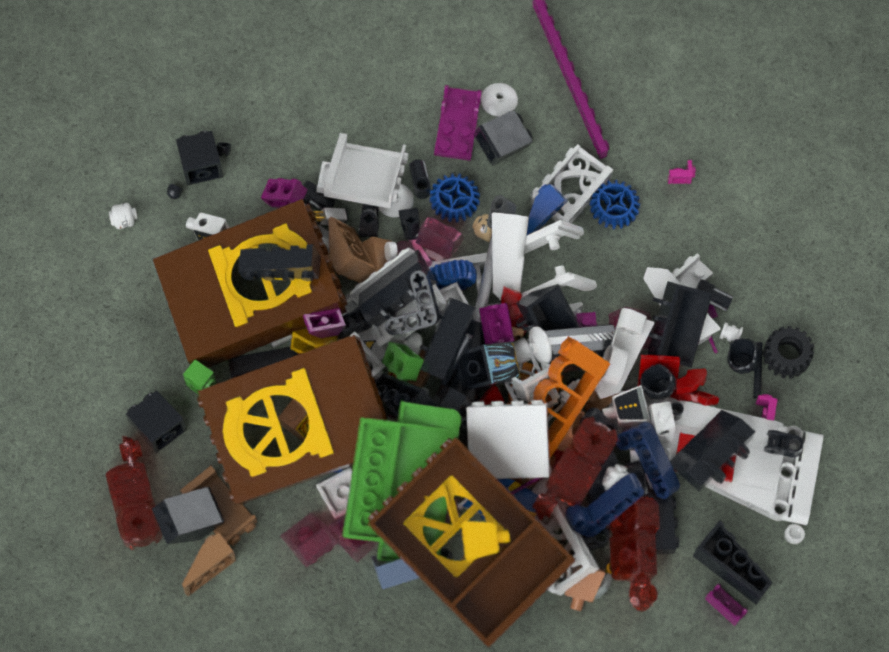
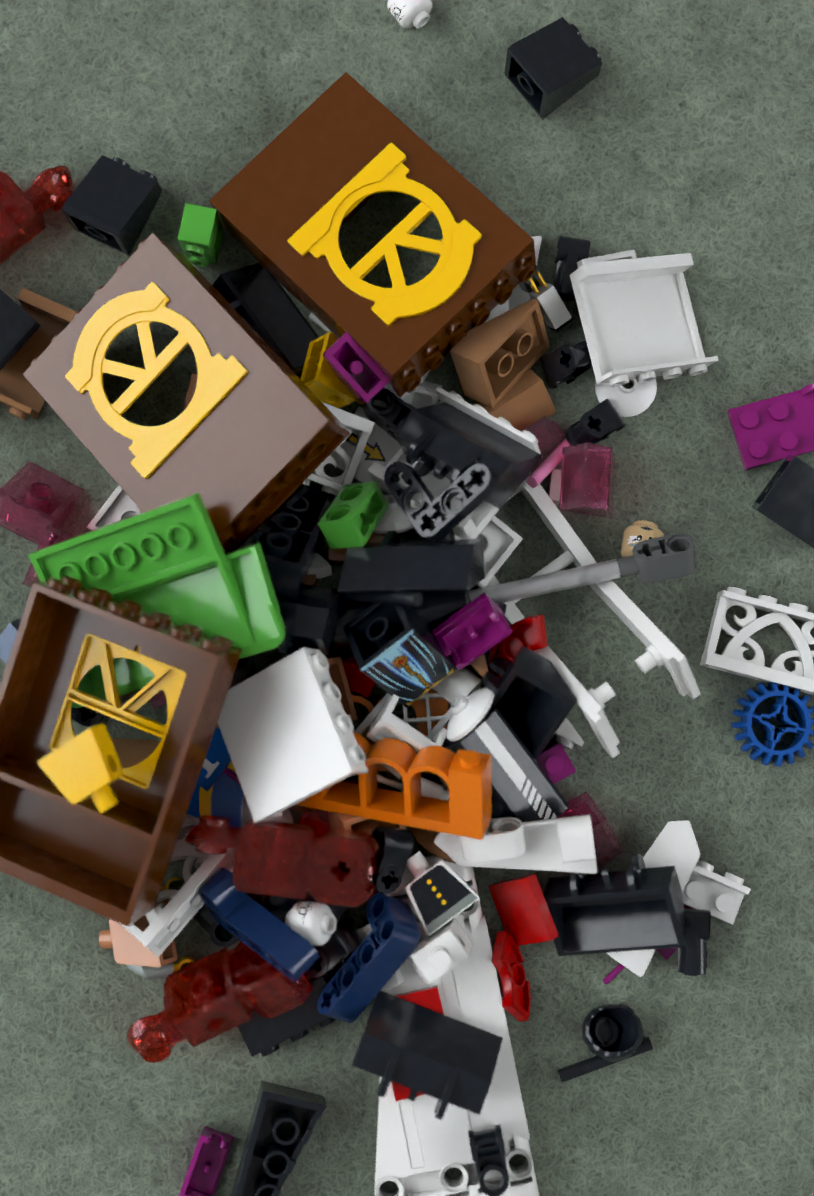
camera: 70 degrees right, 15 degrees up
(174, 191) = (483, 59): black hinge -> none
(206, 225) = (444, 130): white torso -> none
(223, 148) = (586, 96): black hinge -> none
(280, 263) = (408, 260): black wedge -> none
(282, 192) = (552, 216): magenta brick -> none
(390, 250) = (531, 417): white tile -> none
(420, 178) = (676, 407): black piece -> none
(446, 195) = (671, 486): blue gear -> none
(454, 271) = (536, 527): blue gear -> none
(508, 249) = (605, 595): white panel -> none
(545, 206) = (713, 617): blue slope -> none
(658, 382) = (500, 920): black hair -> none
(678, 406) = (472, 975): black hinge -> none
(691, 381) = (532, 968): red tile -> none
(731, 332) = (645, 995): white bush -> none
(769, 411) = (543, 1108): dark pink bracket -> none
(778, 362) = (672, 1119): black tyre -> none

